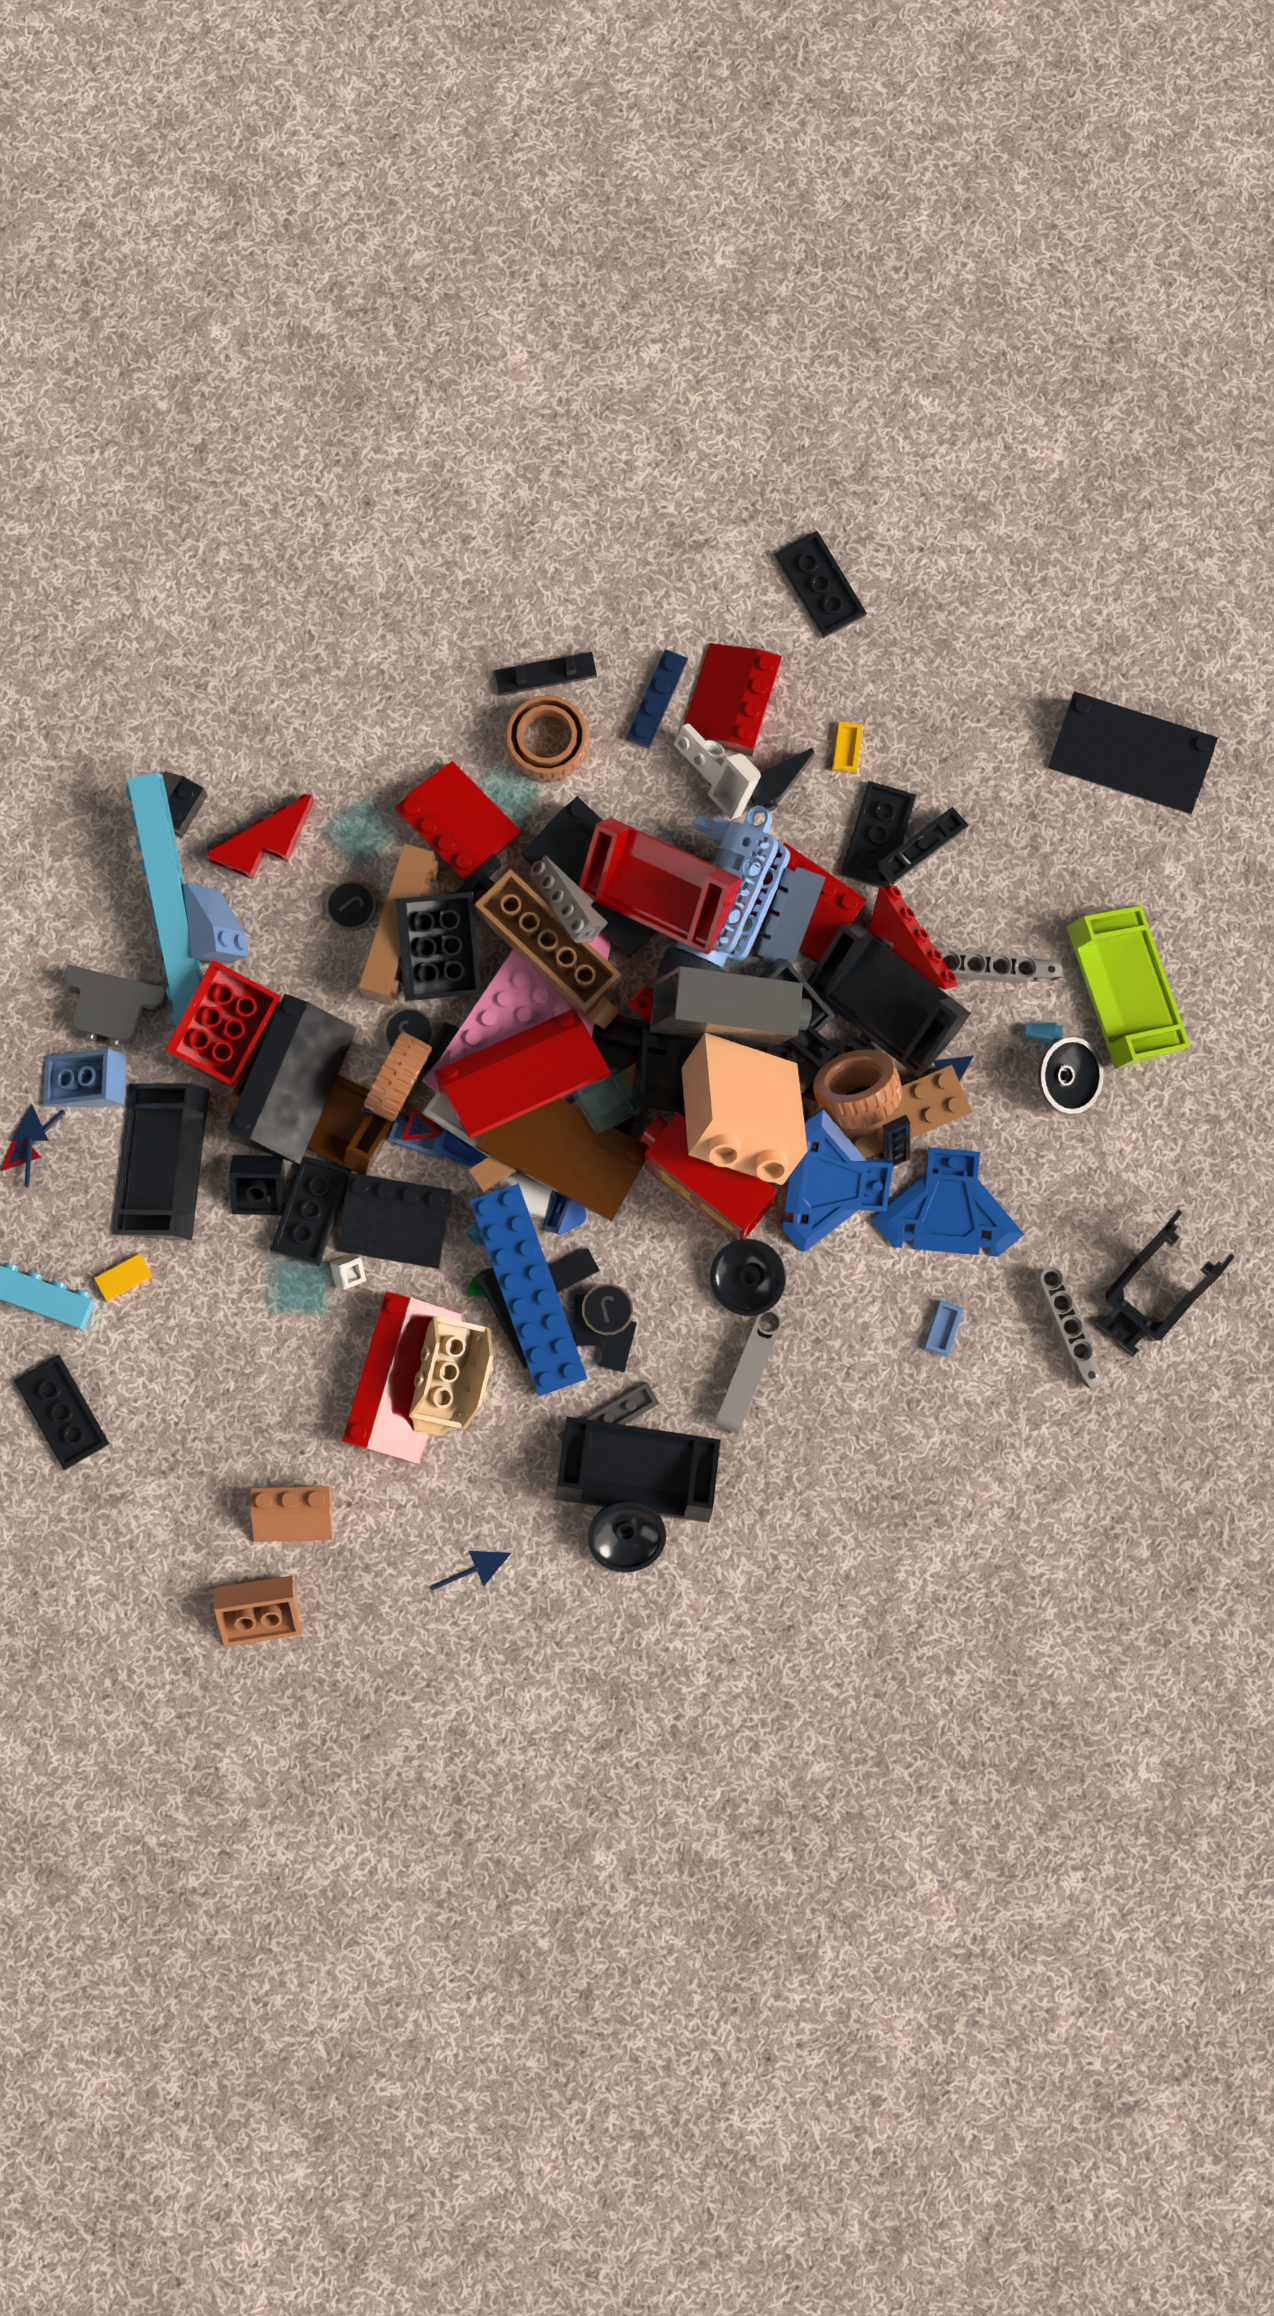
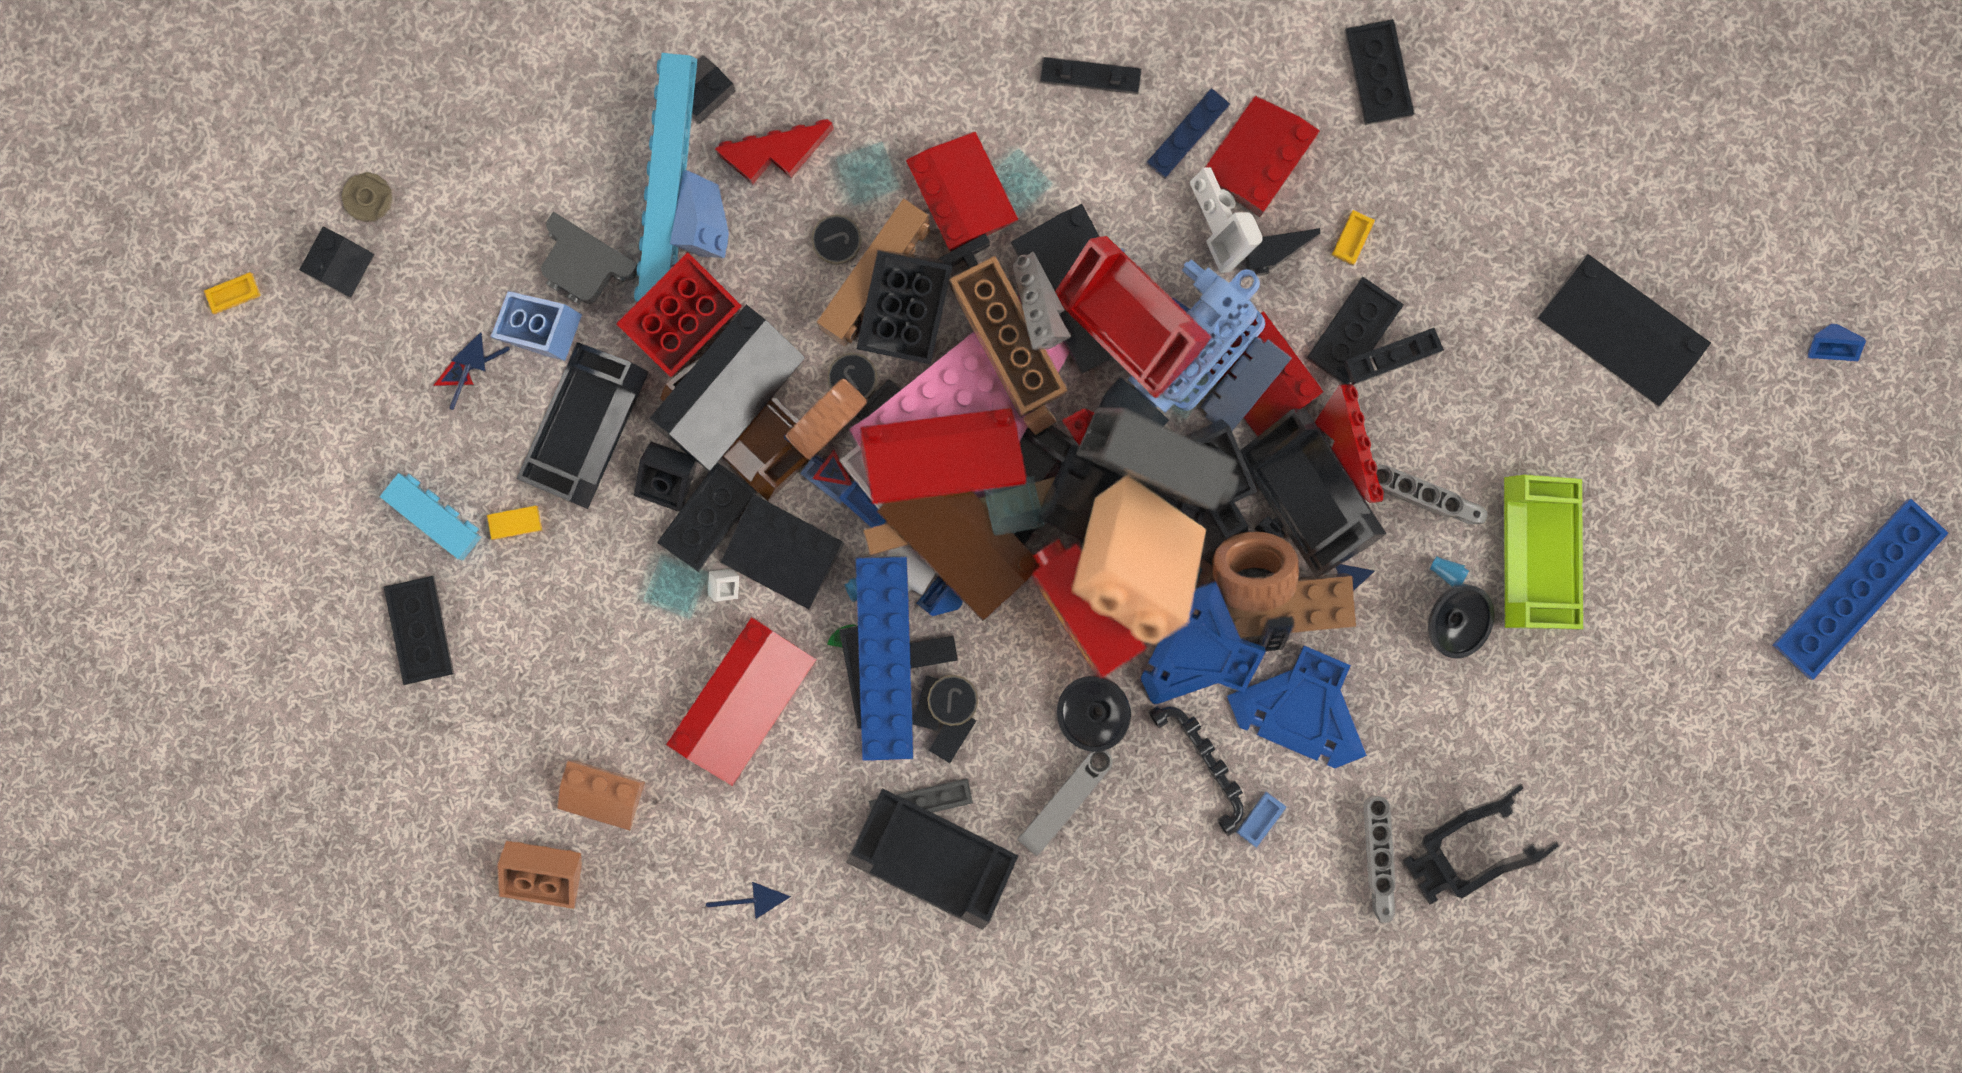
camera: 20 degrees right, 5 degrees up
(451, 1376) = (788, 715): tan slope -> none
(547, 768) = (1071, 169): nougat tyre -> none
(631, 1548) = (897, 928): black dish -> none
(883, 1293) = (1204, 749): none -> black bar

